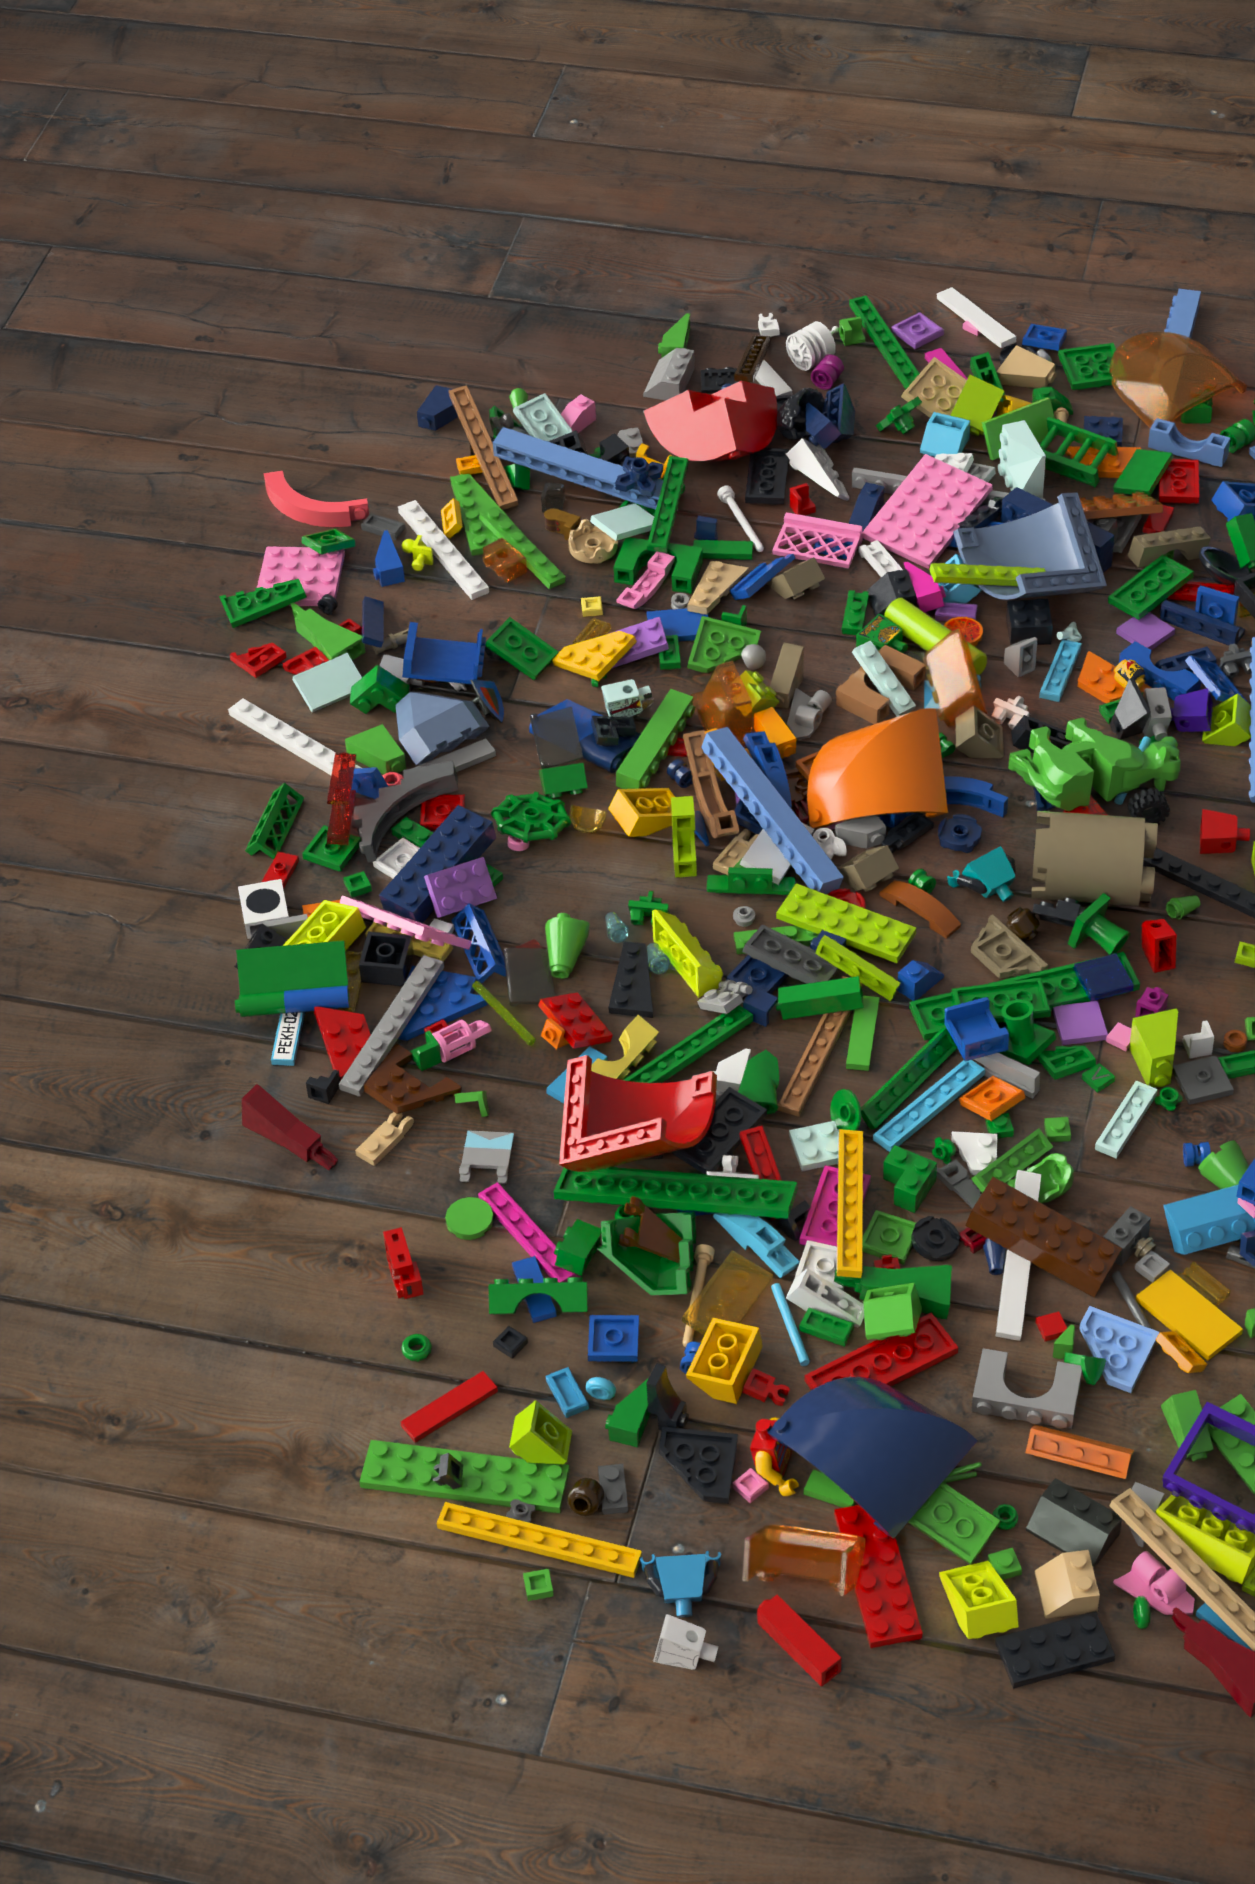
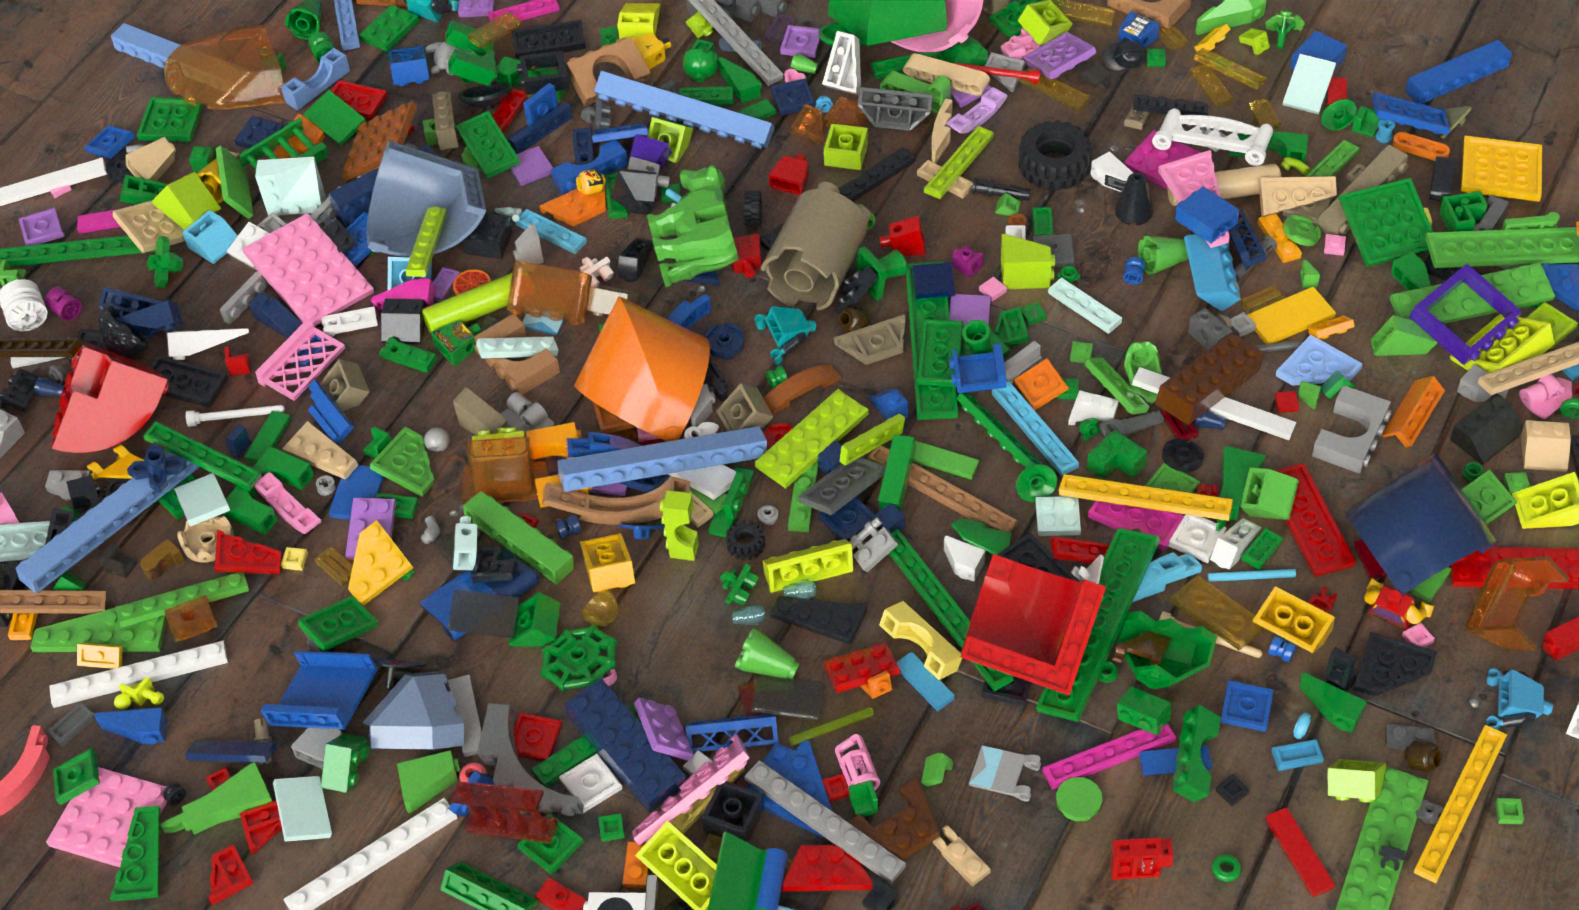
camera: 75 degrees left, 5 degrees up
(576, 569) = (241, 556): none -> red wing
(653, 684) = (432, 531): none -> light grey arm
(705, 895) = (743, 530): none -> black tyre

